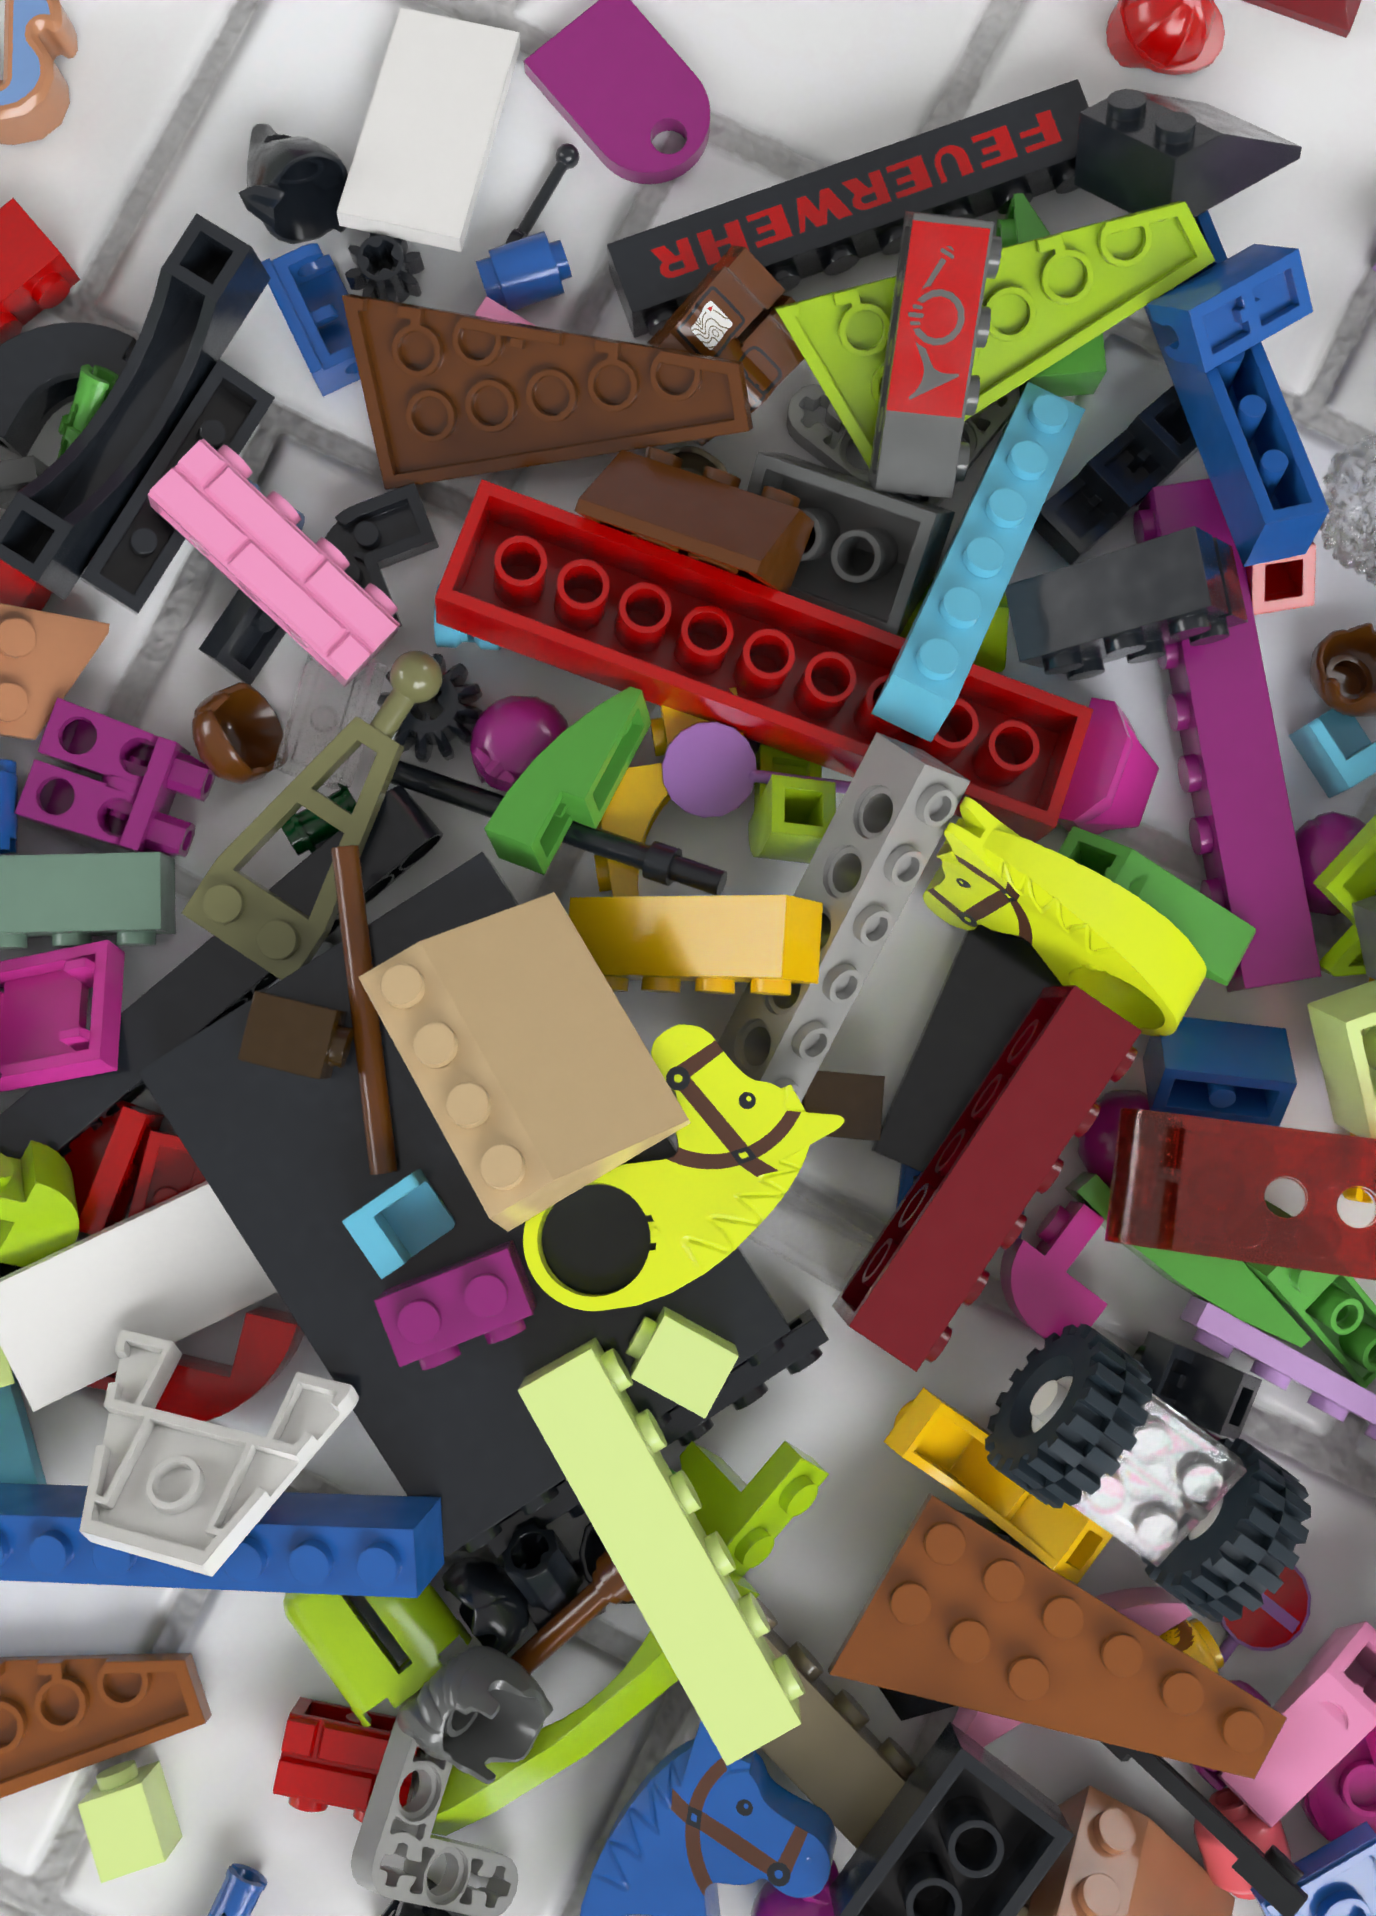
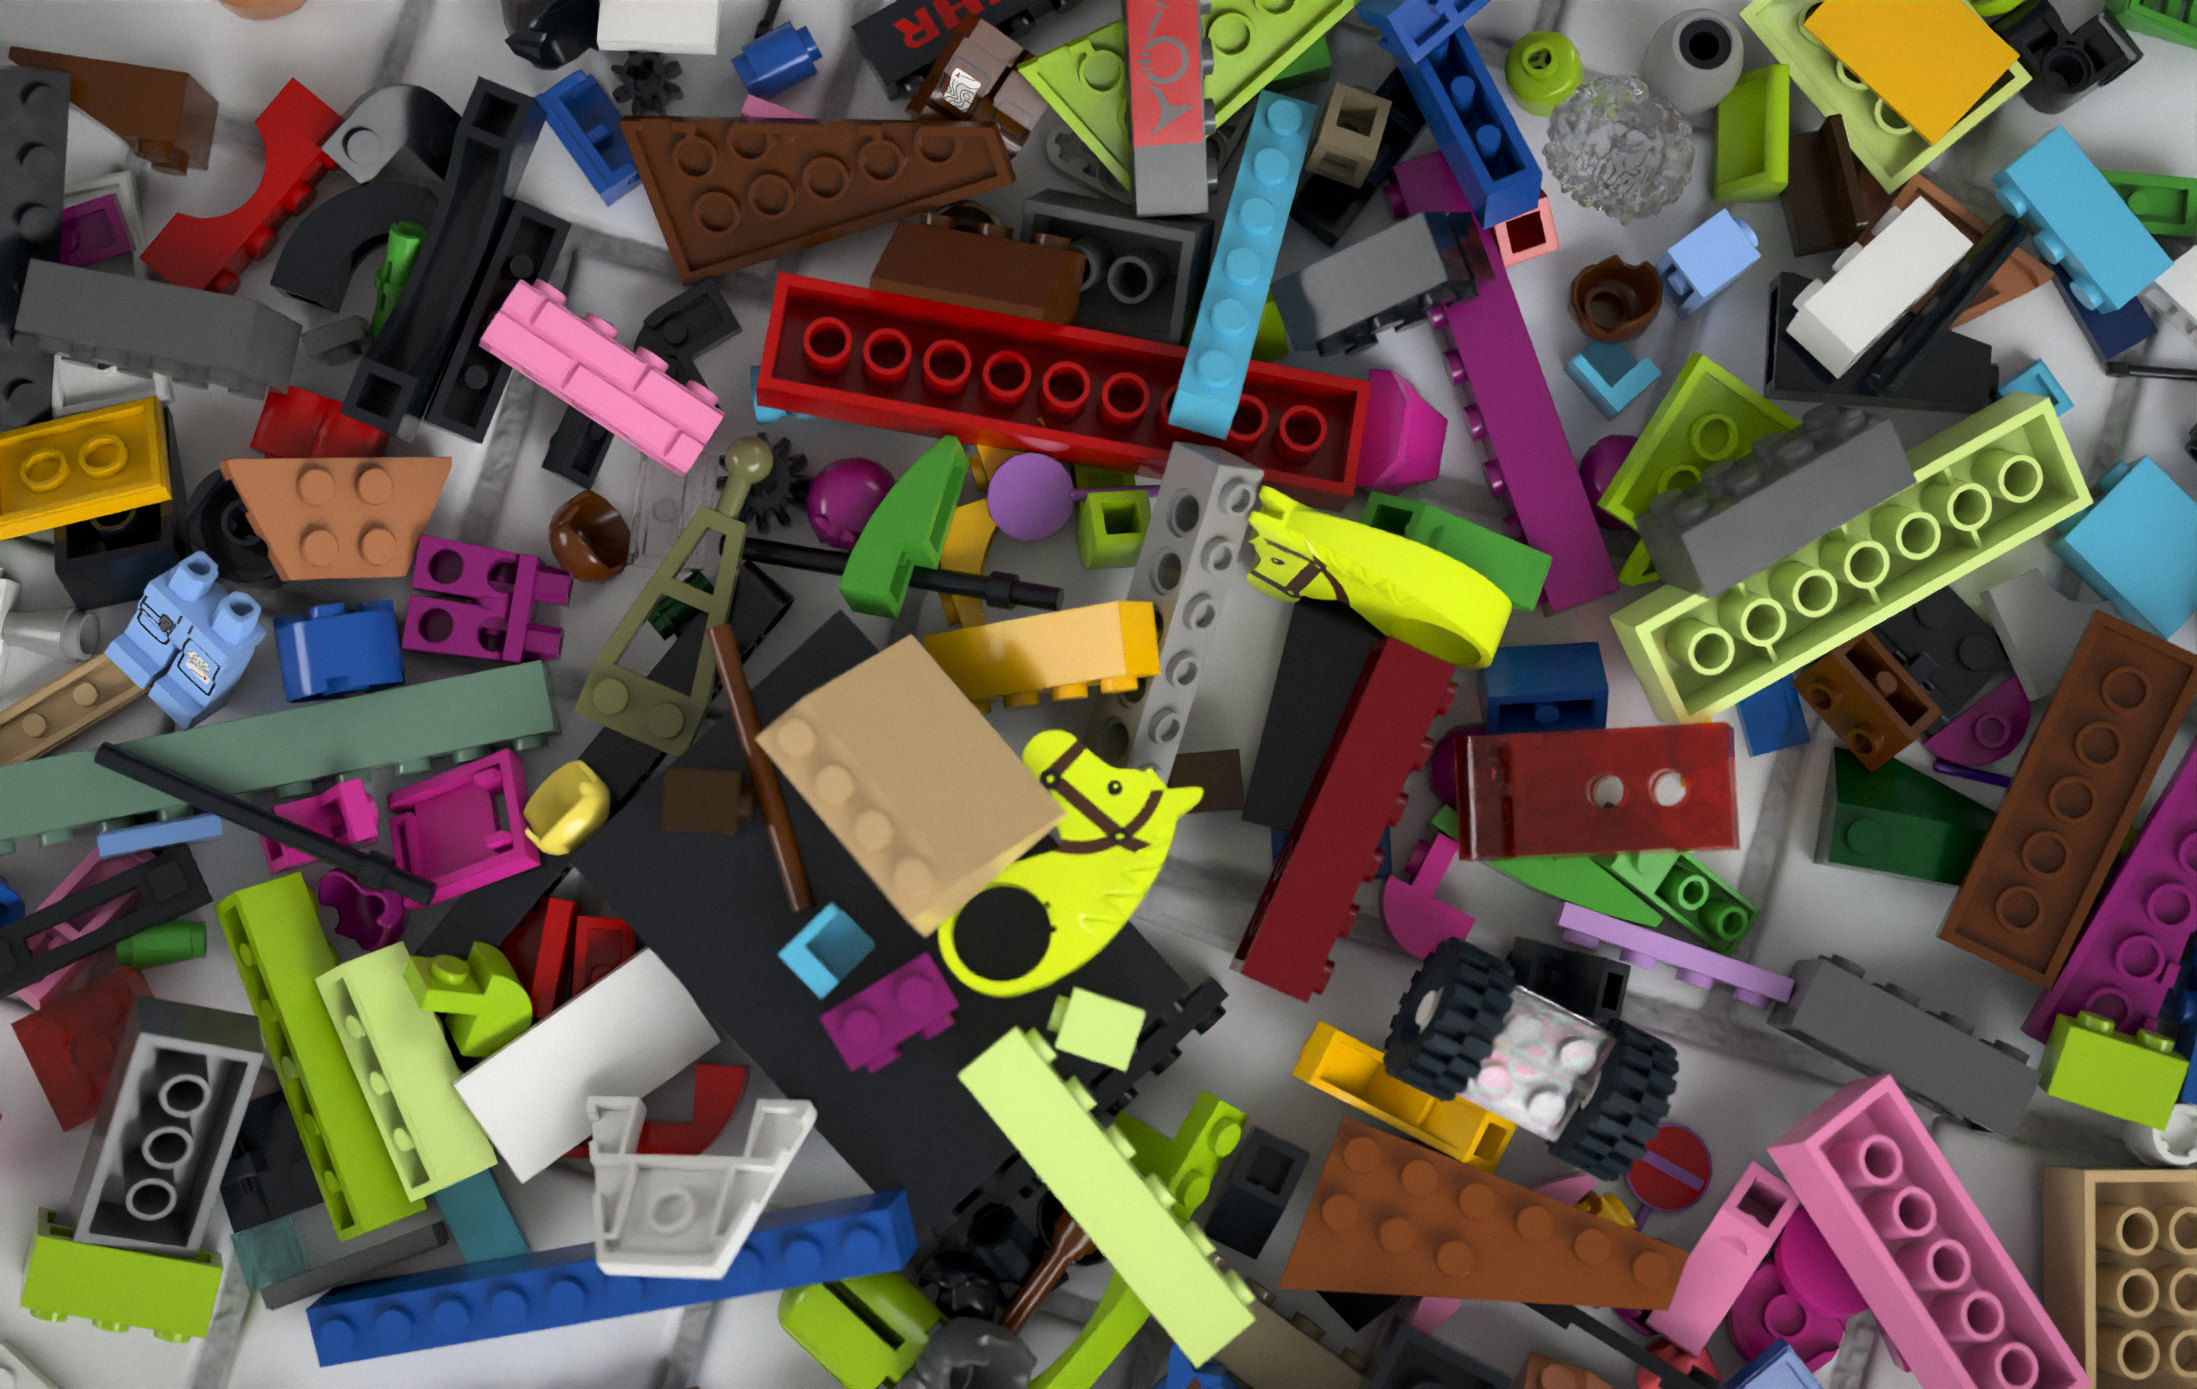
camera: 10 degrees left, 0 degrees up
(95, 264) = (384, 122): none -> black plate
(154, 1016) = (567, 809): none -> light yellow hair
(823, 1553) = (1256, 1192): none -> black slope
(1113, 444) = (1348, 134): none -> dark tan brick
(1330, 414) = (1543, 71): none -> lime head

